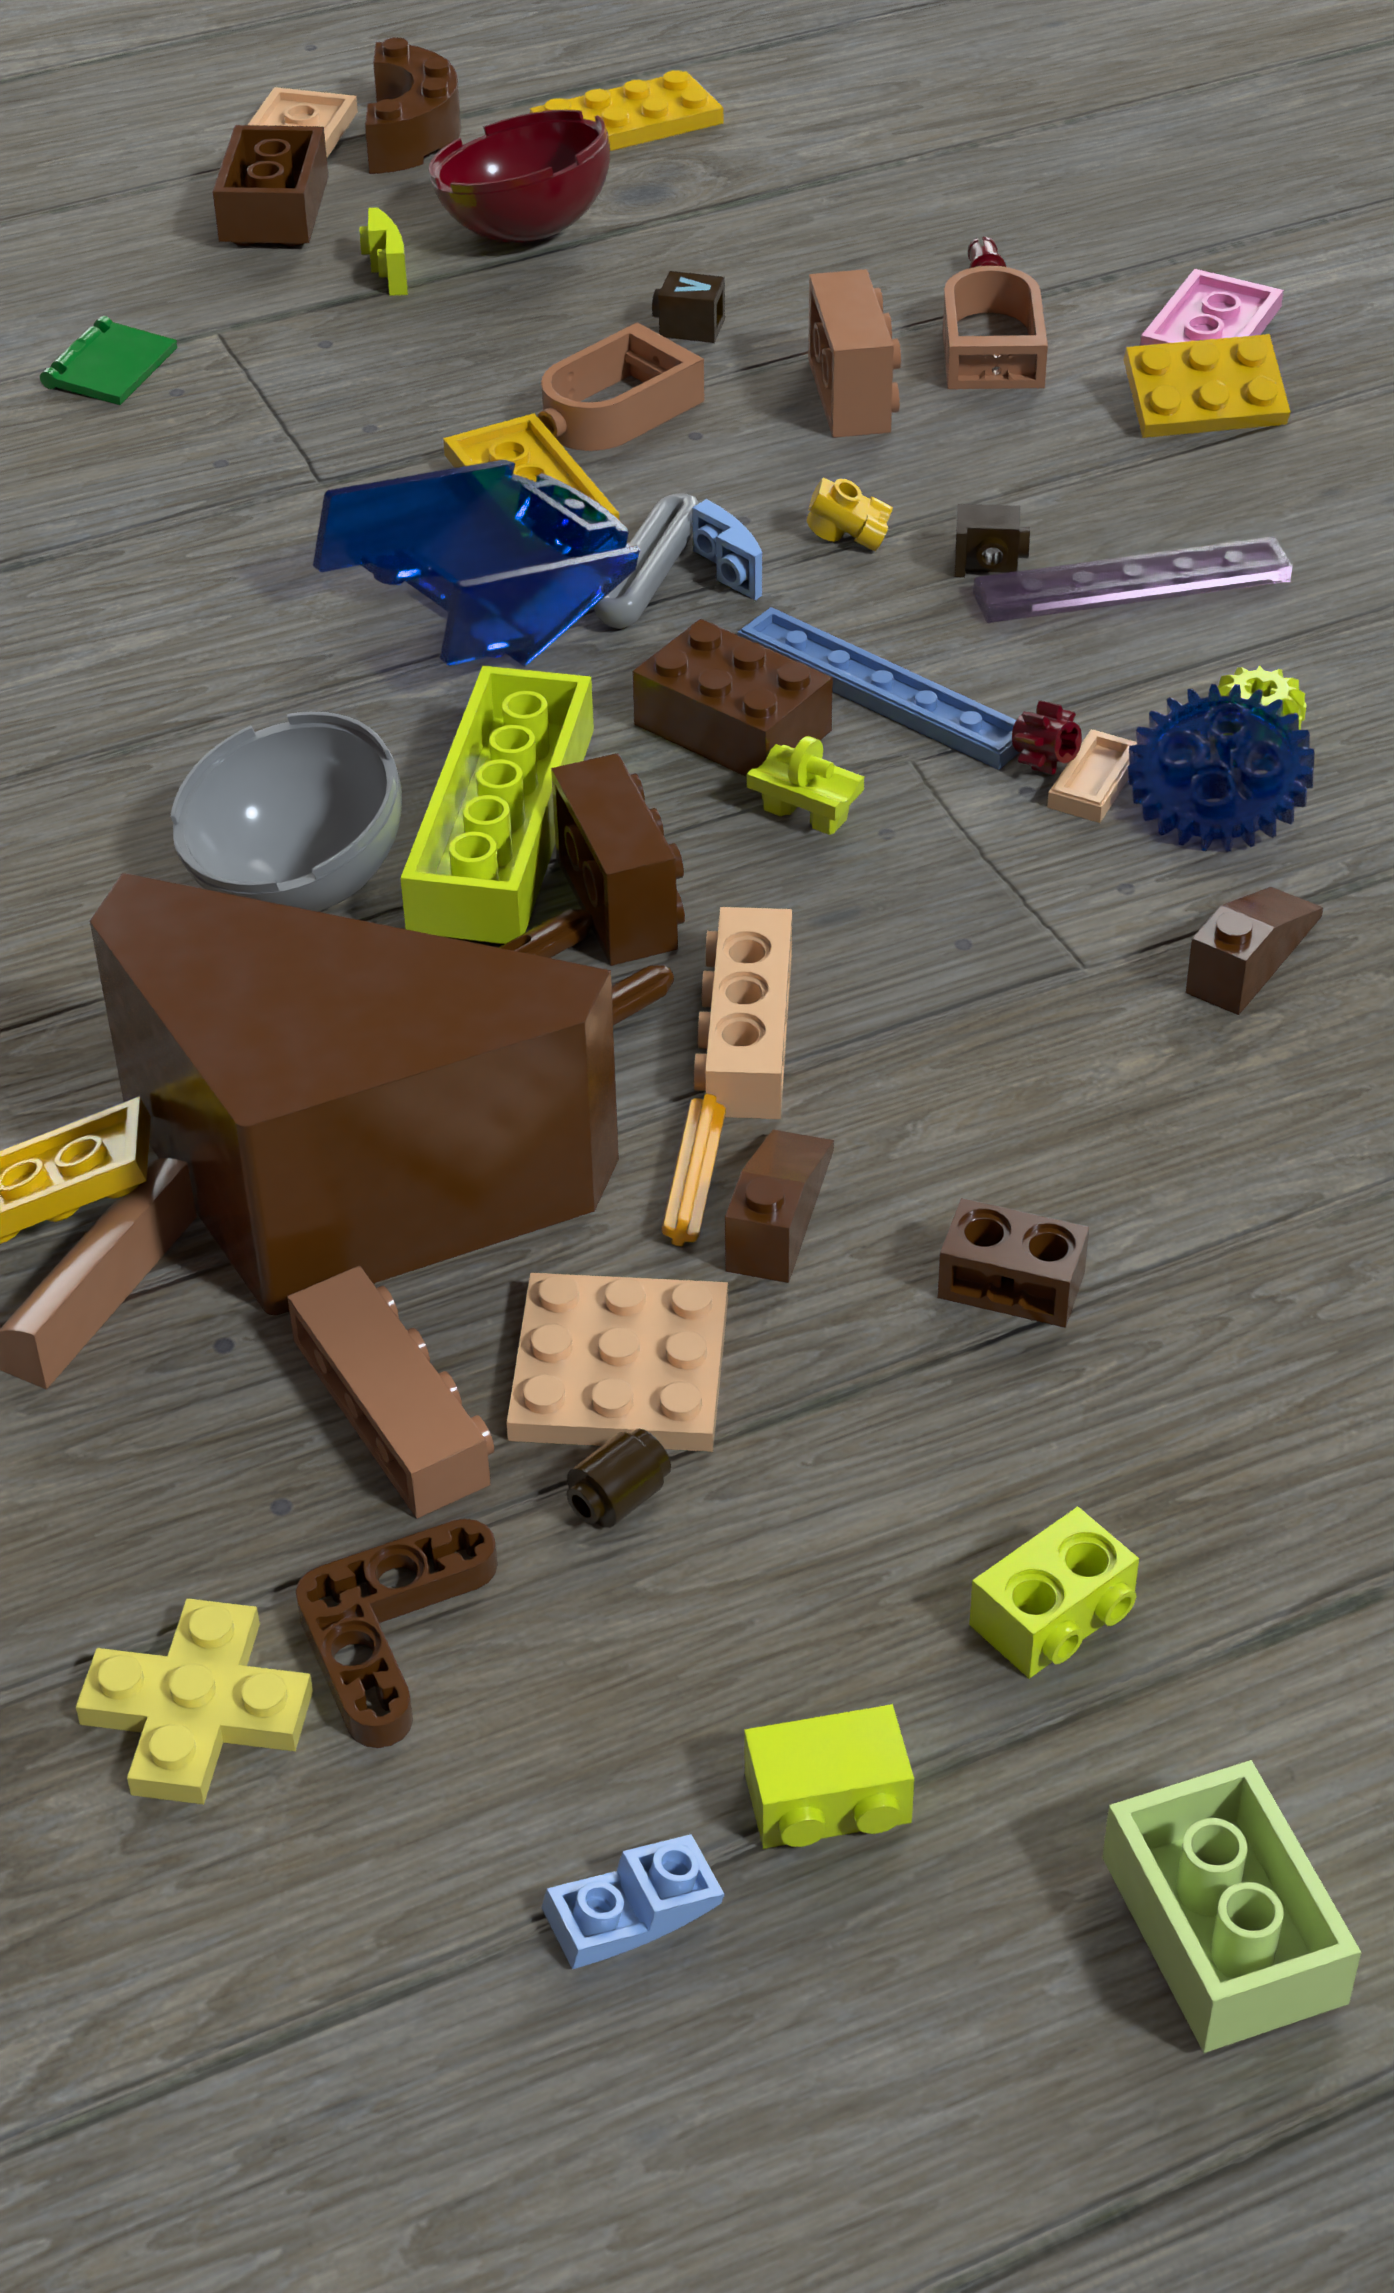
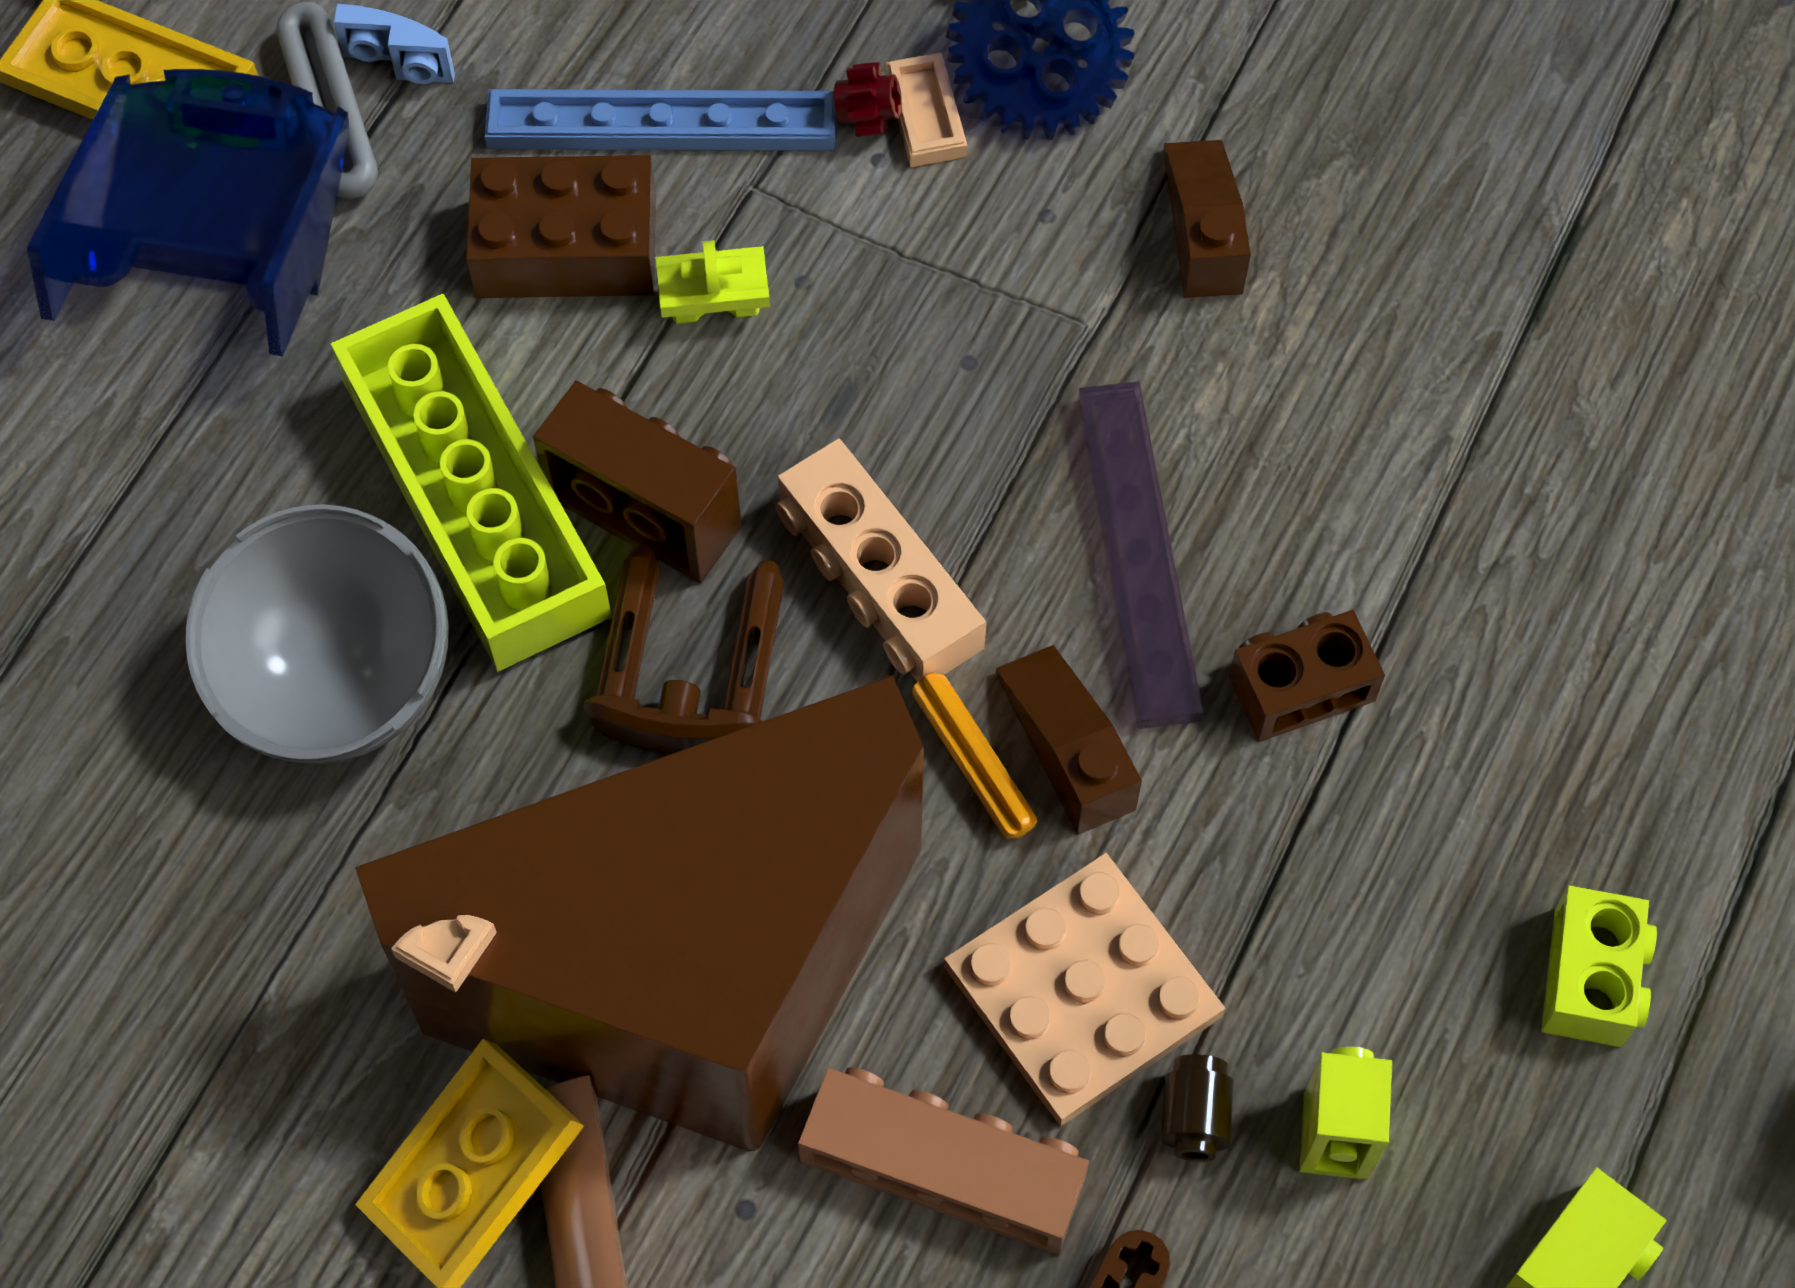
camera: 40 degrees left, 20 degrees up
(125, 943) = (446, 948): none -> light nougat tile
(717, 1537) = (1346, 1114): none -> neon yellow brick
(963, 1125) = (1139, 556): none -> clear purple tile

